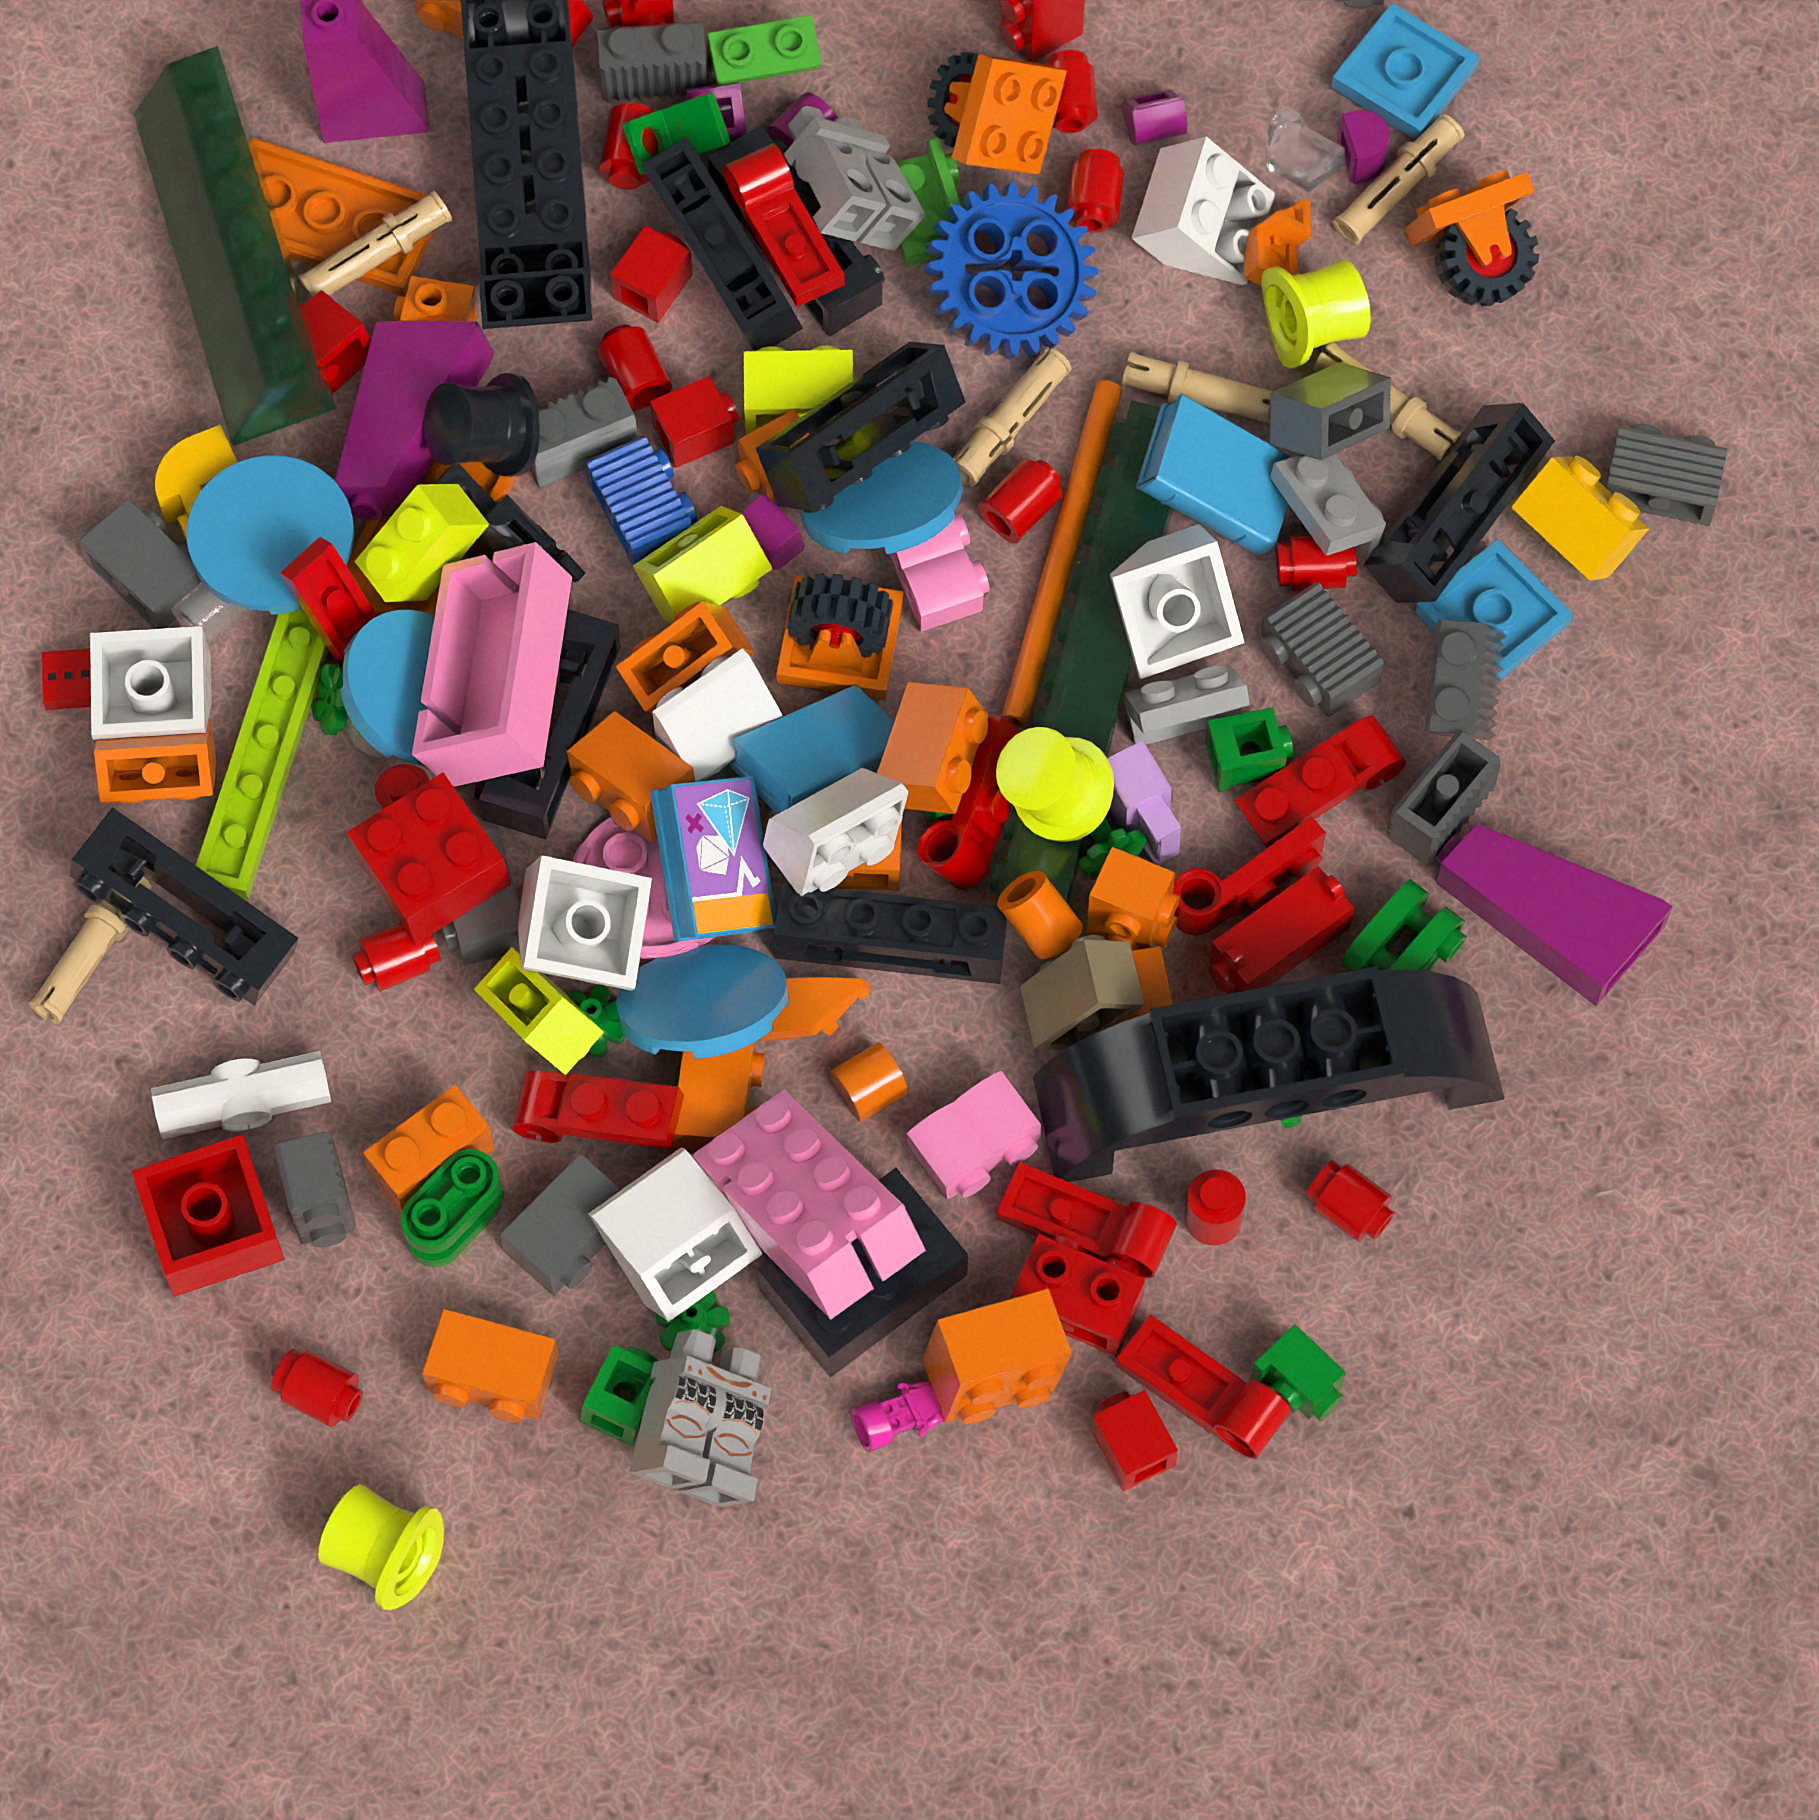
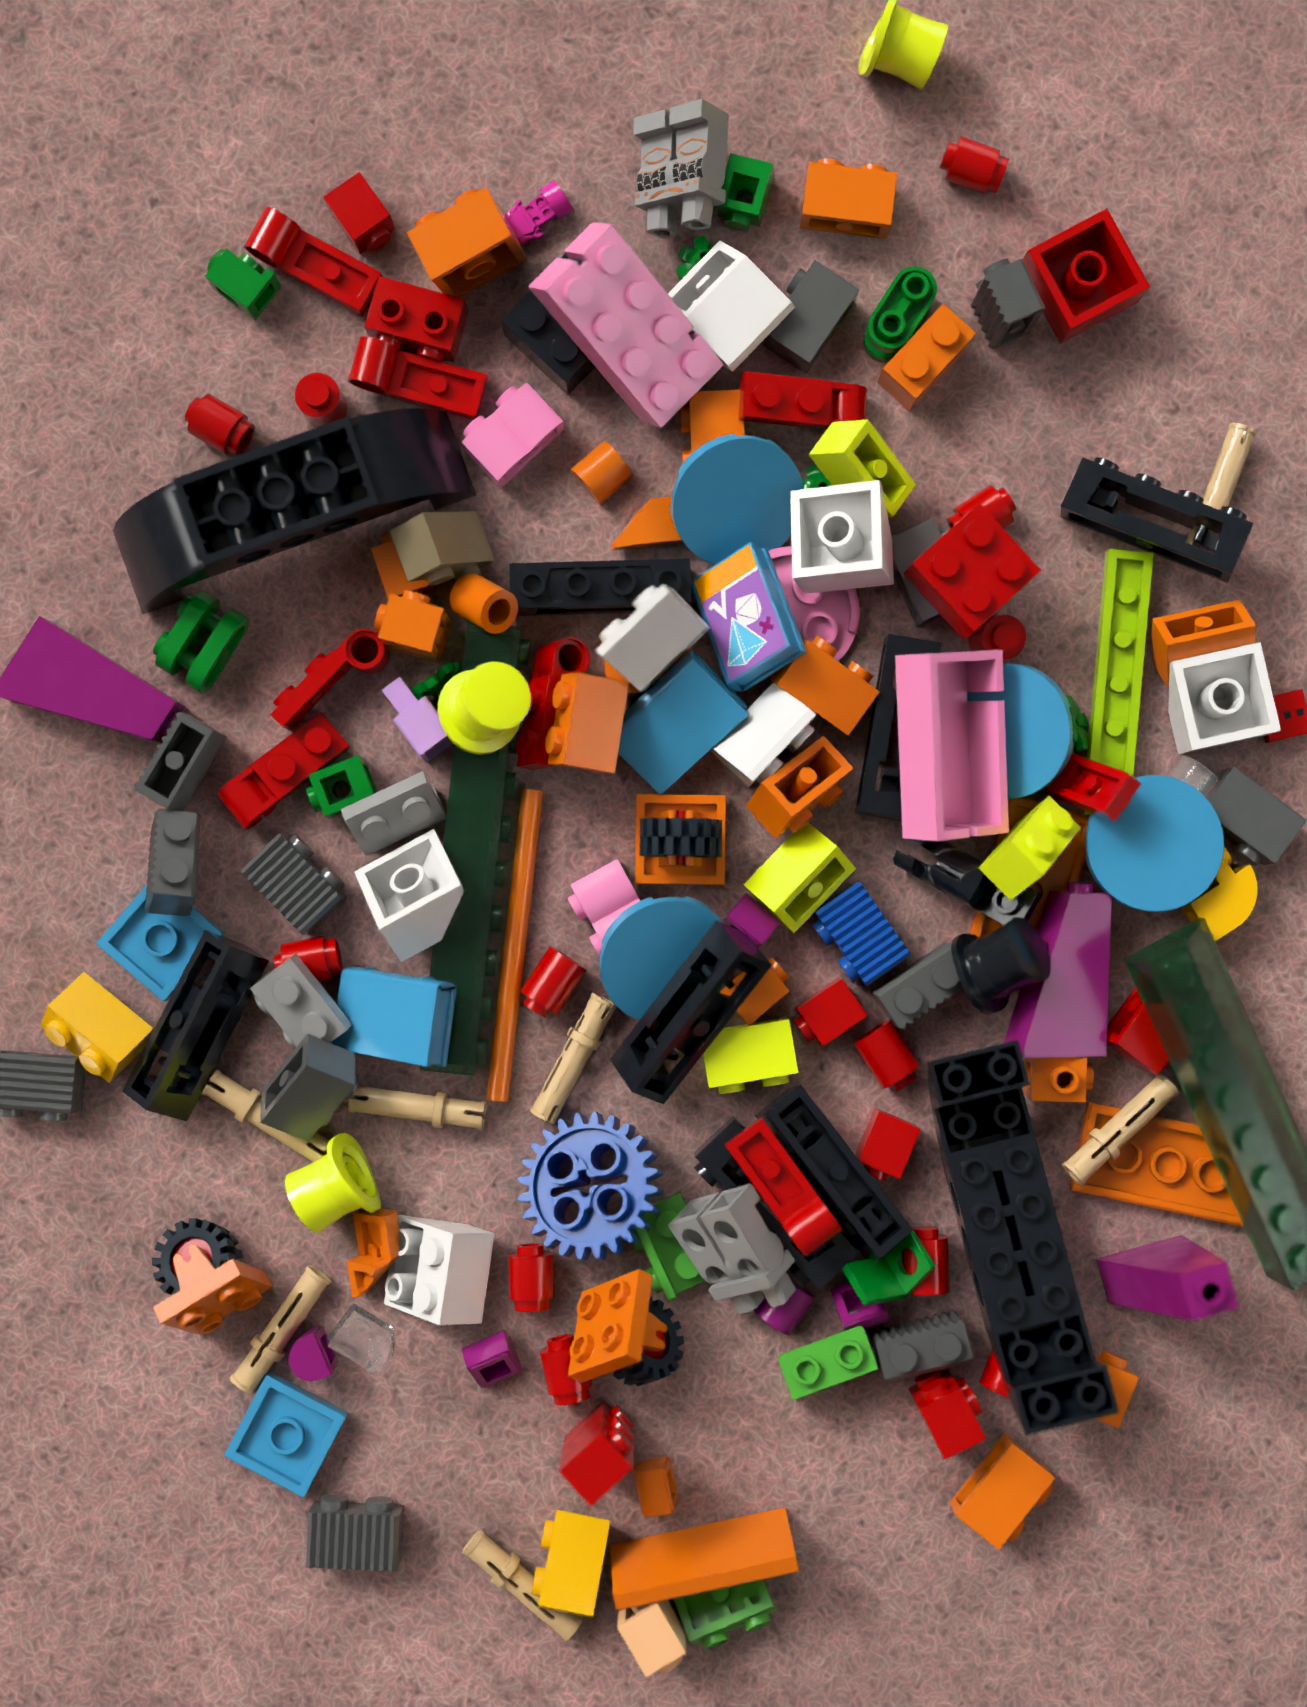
camera: 170 degrees right, 20 degrees up
(240, 1095) = (1078, 384): white piece -> none
(1281, 934) = (298, 632): red brick -> none

